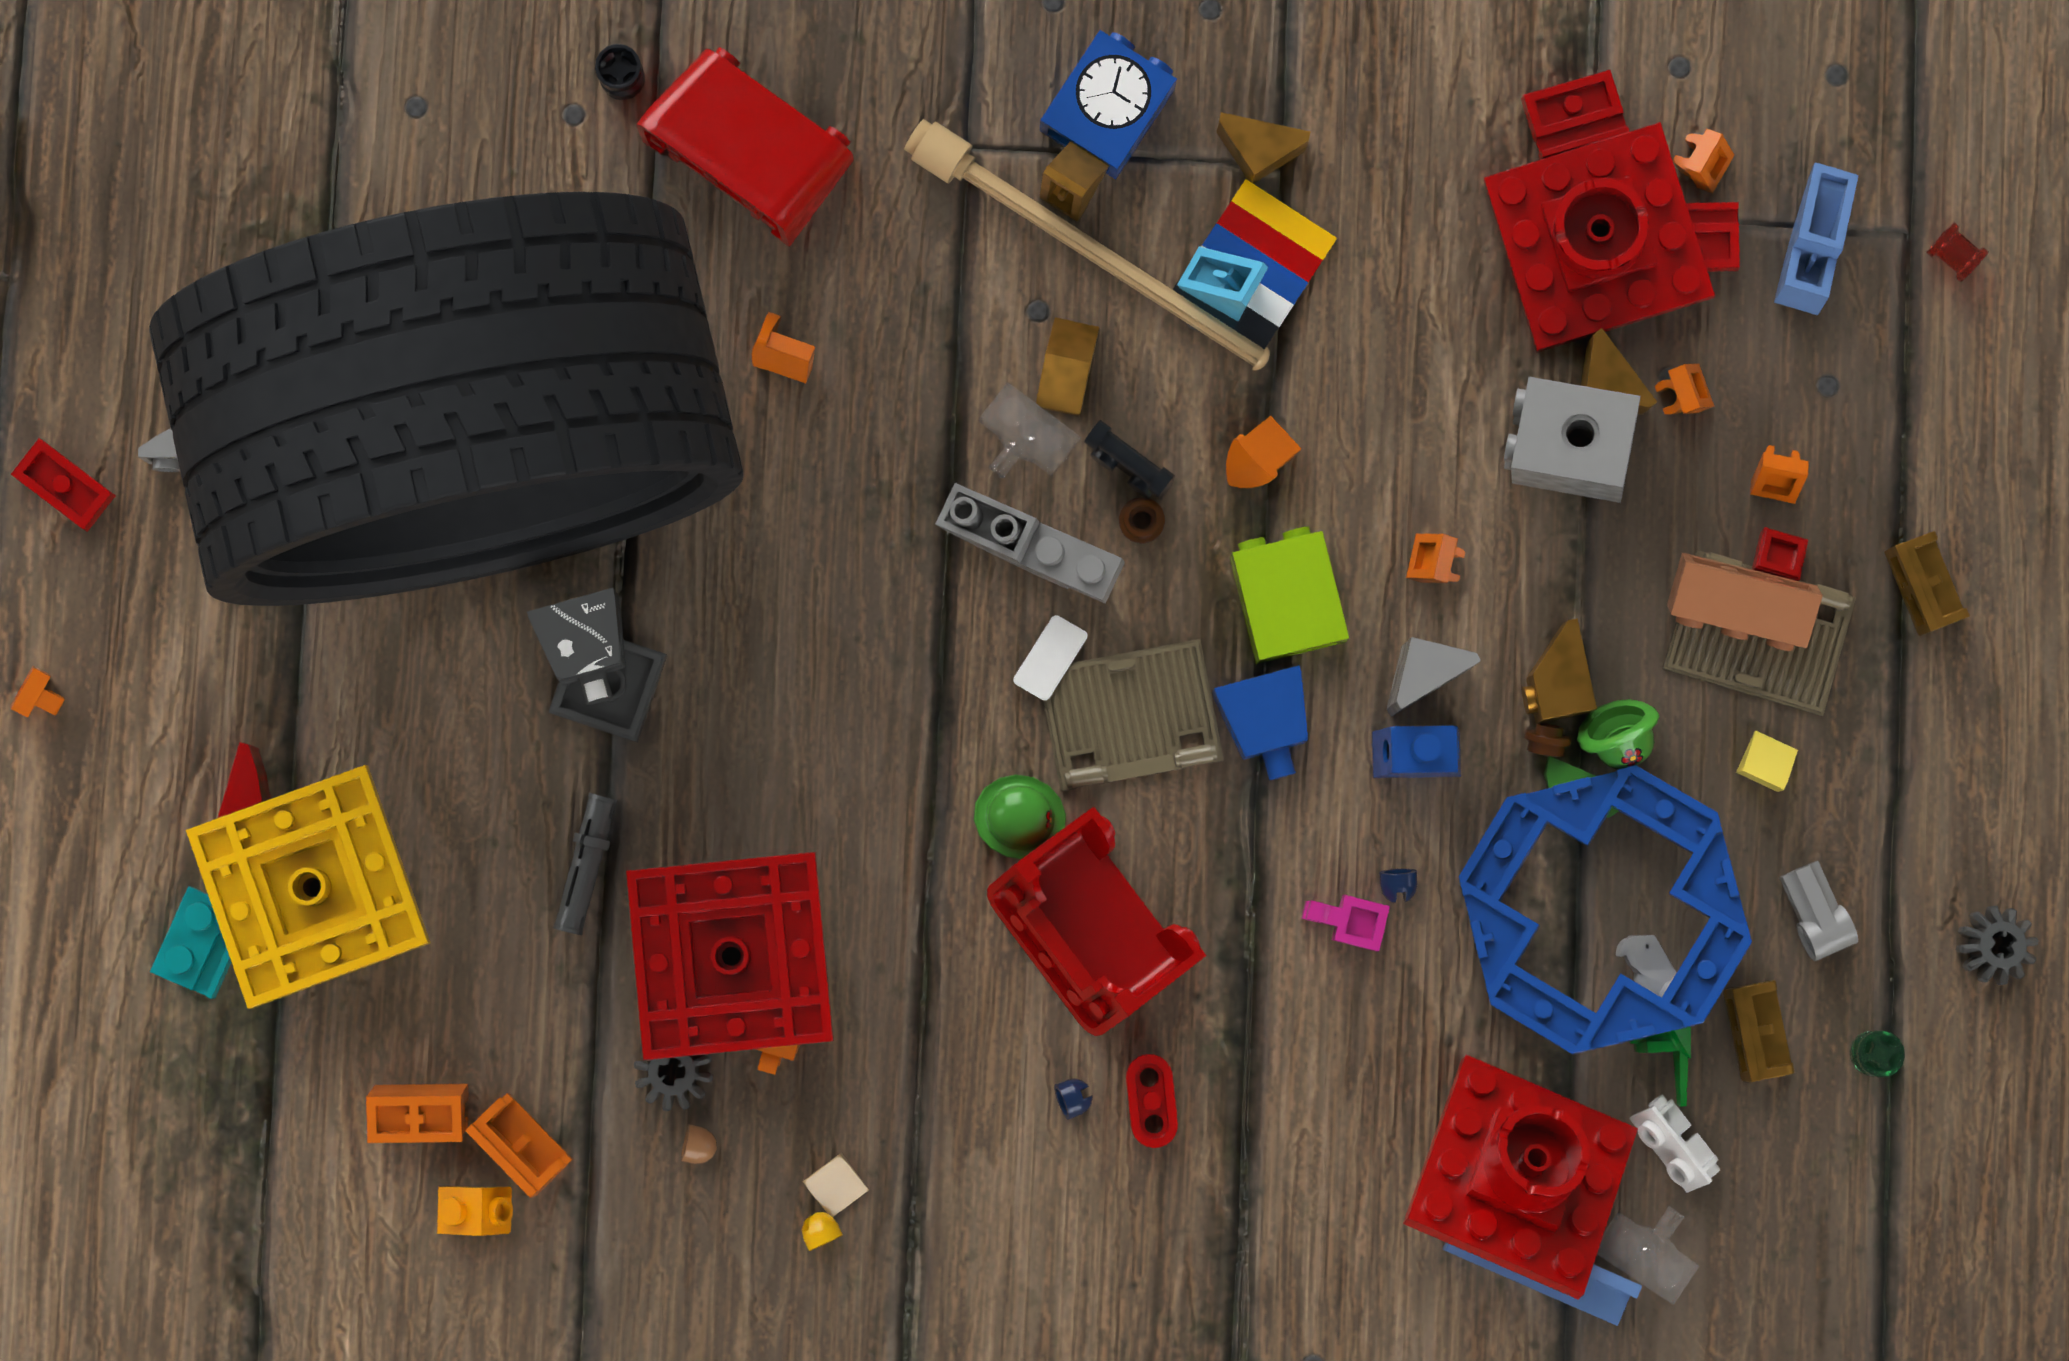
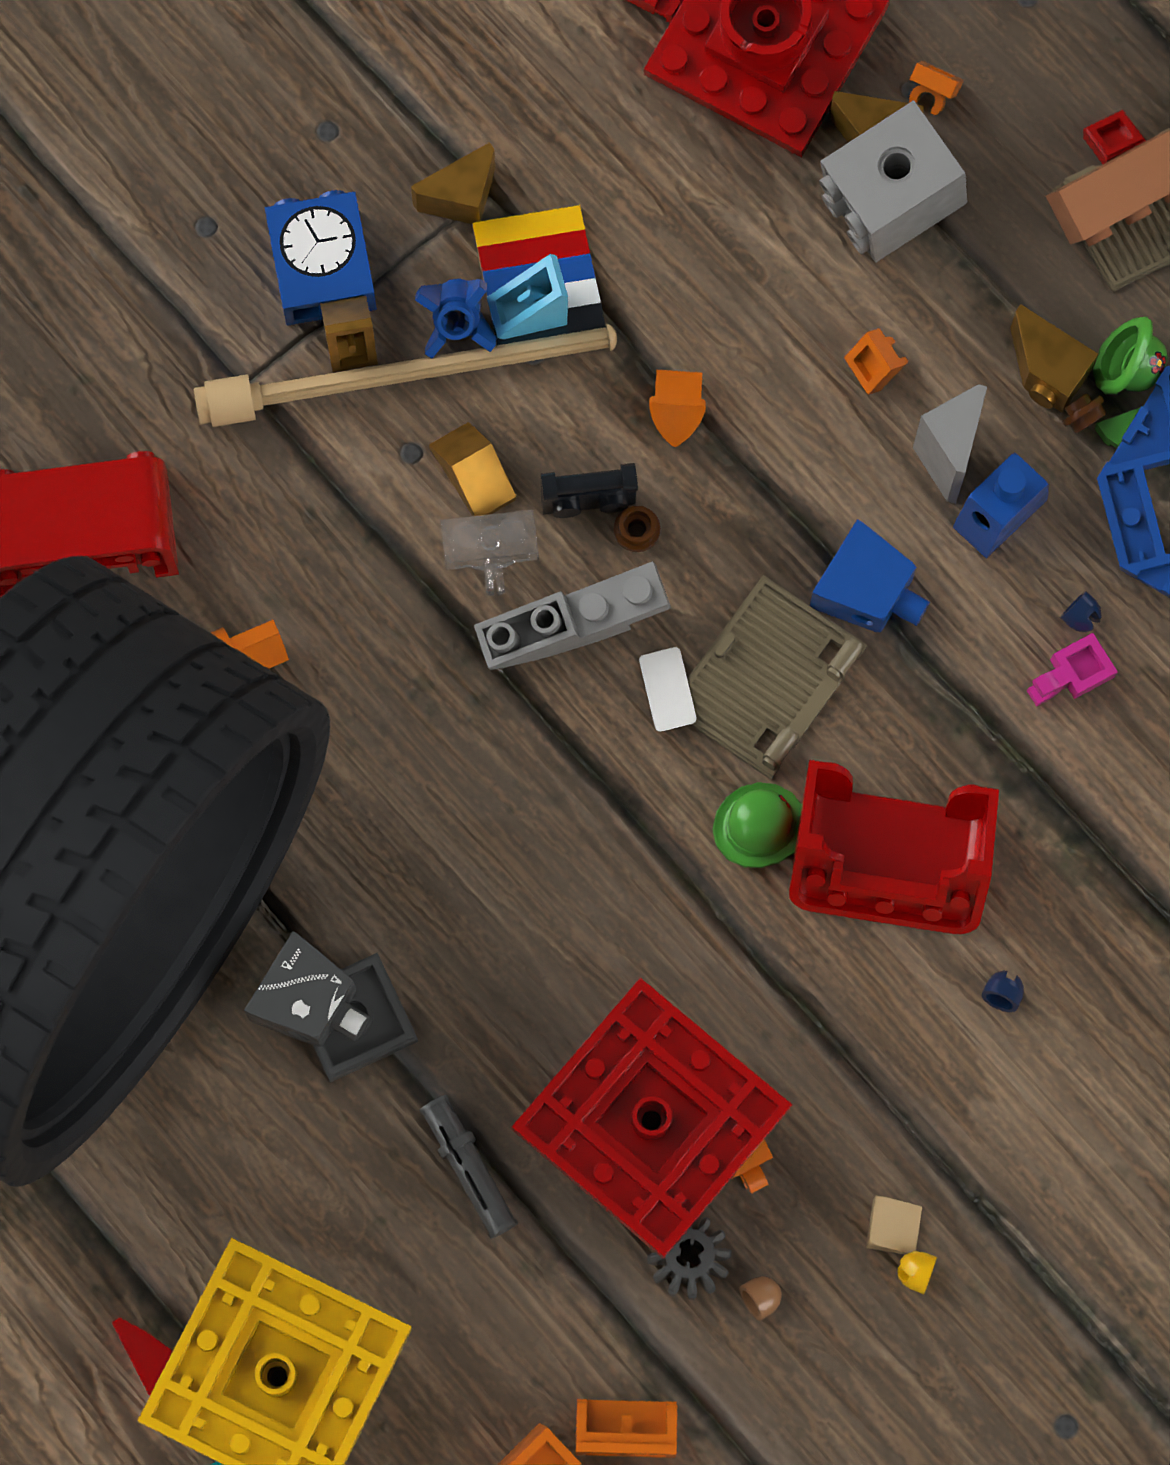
camera: 40 degrees left, 10 degrees down
(1151, 1100) = (1066, 934): red plate -> none
(1162, 239) = (456, 313): none -> blue brick
(1288, 595) = (797, 482): lime brick -> none
(1779, 476) = (1059, 83): orange tile -> none

